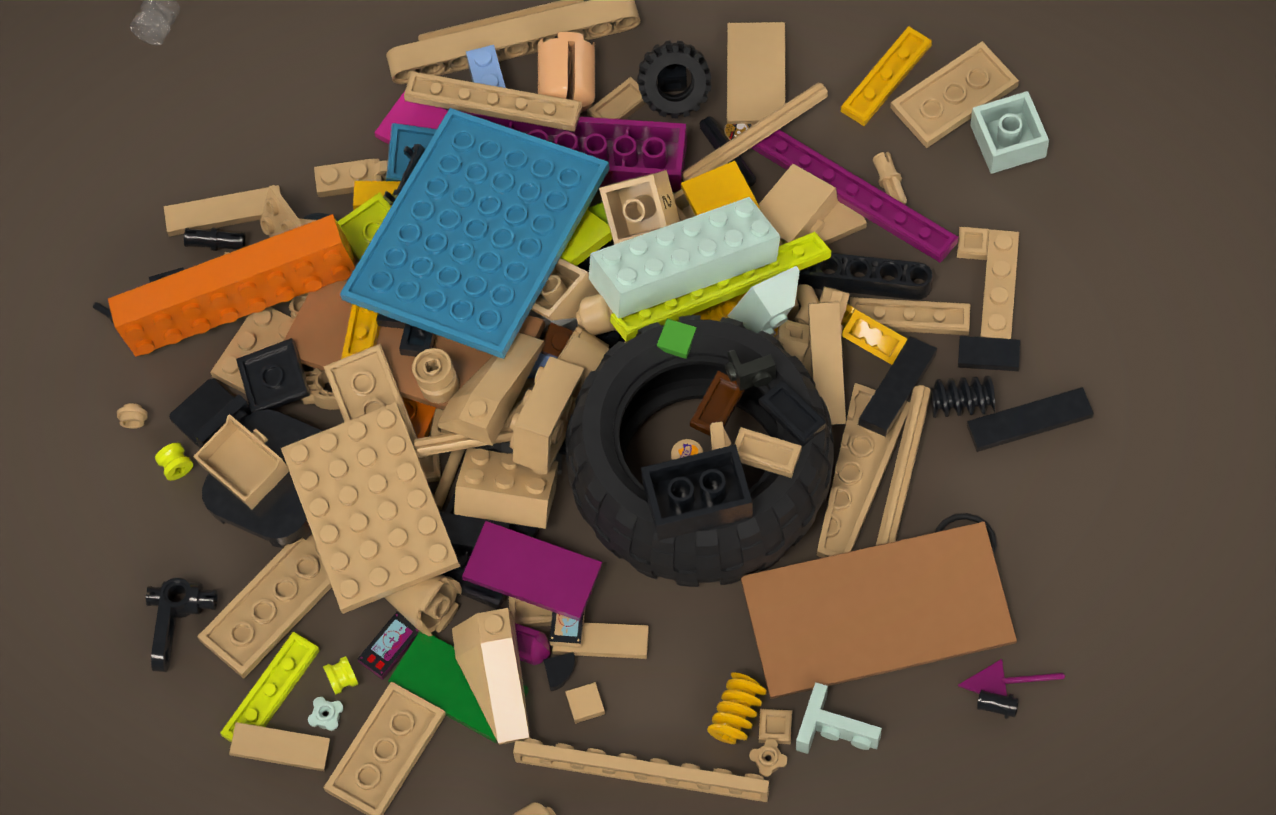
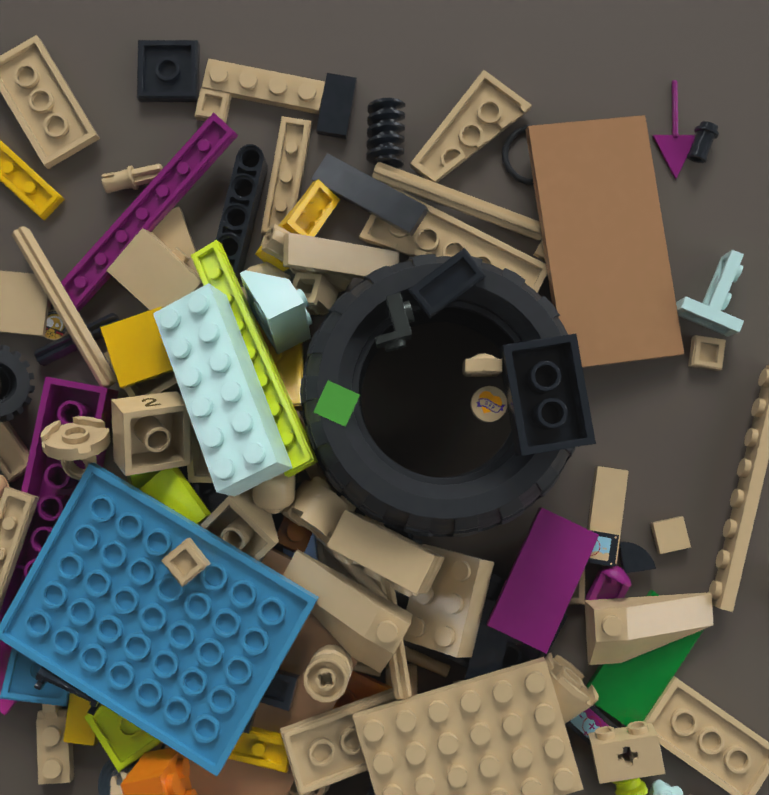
camera: 85 degrees left, 20 degrees up
(362, 648) = (640, 761): none -> tan brick
(527, 245) = (185, 562): none -> tan tile
(626, 150) = (75, 441): none -> tan tile
(717, 403) = (419, 368): reddish brown tile -> none
(735, 709) = (696, 384): yellow piece -> none
(767, 452) = (491, 317): tan tile -> none
(777, 760) = (732, 362): tan plate -> none
(987, 479) = (472, 123): none -> tan wing
(1003, 200) = (168, 70): none -> black tile
(1009, 132) = (96, 49): light aqua brick -> none
(1030, 419) = (411, 75): black tile -> none

